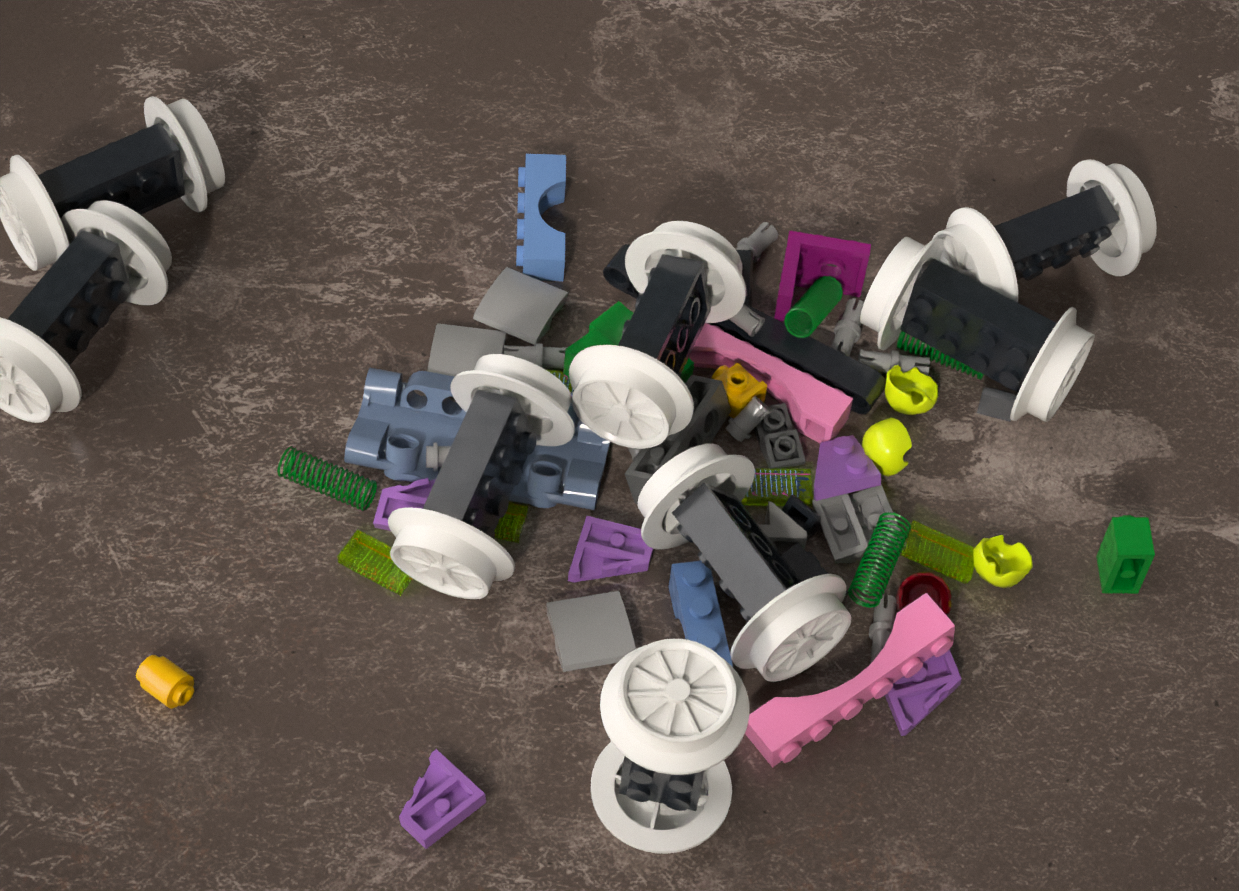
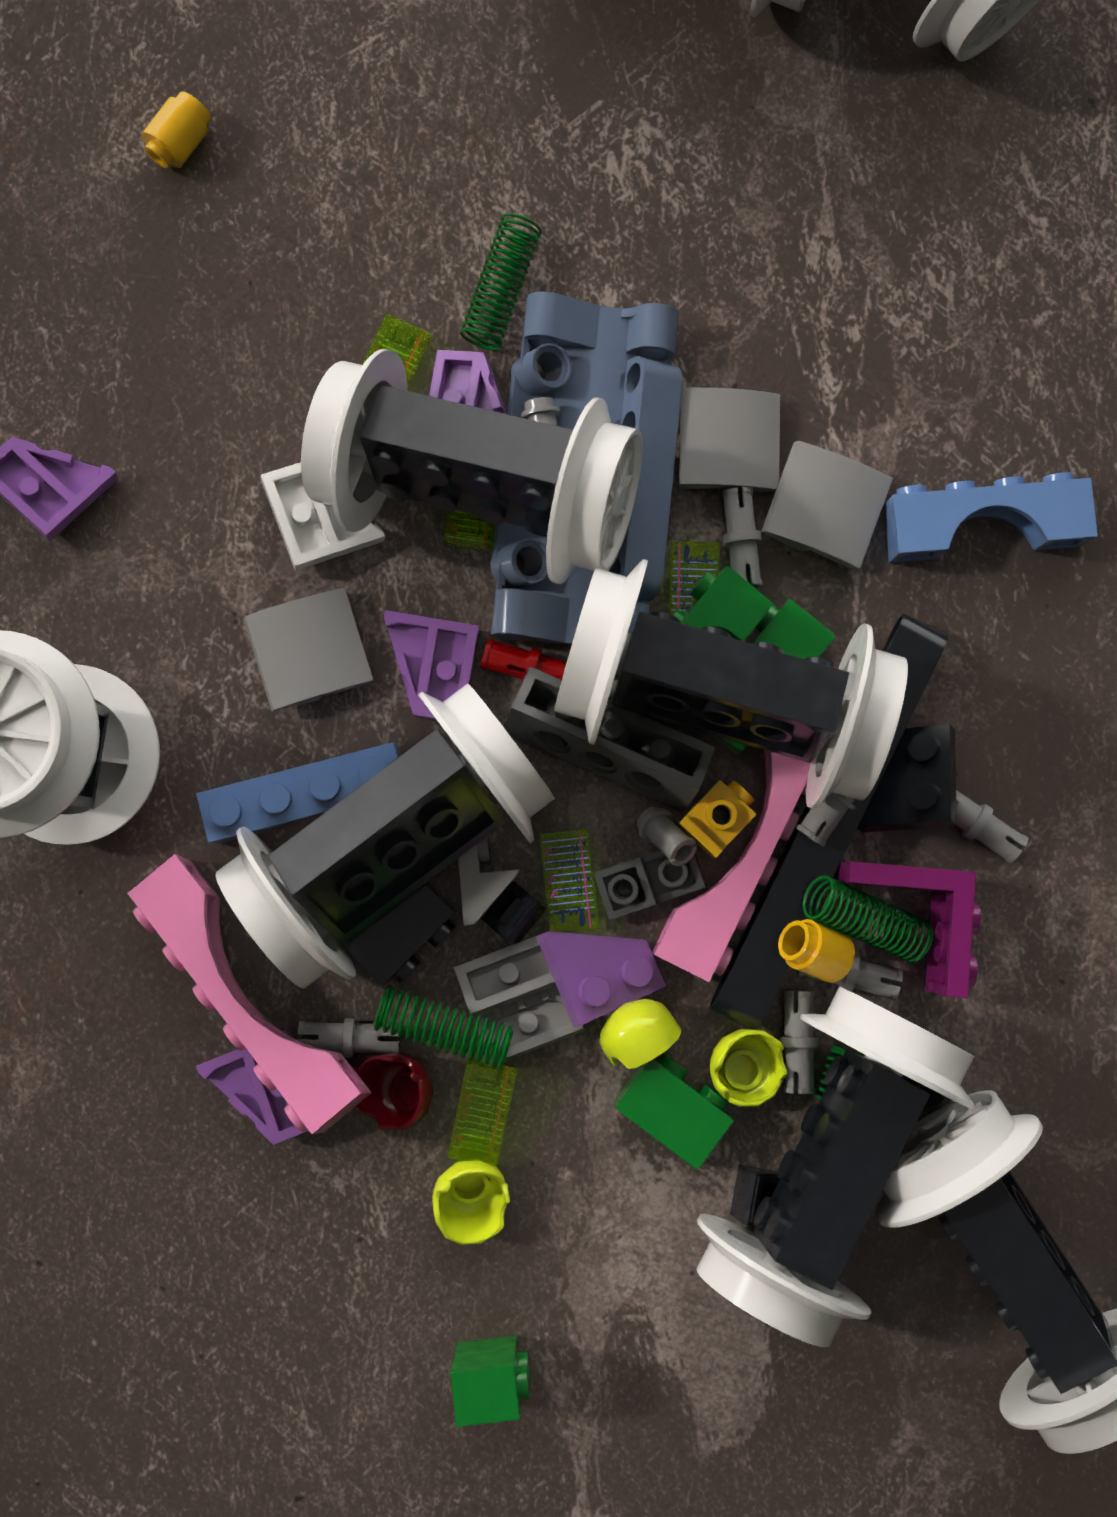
camera: 90 degrees right, 30 degrees up
(489, 619) = (310, 526): none -> white wing
(616, 493) = (516, 661): none -> red pin
(835, 330) = (817, 950): none -> yellow brick
(940, 436) = (674, 1110): none -> green brick

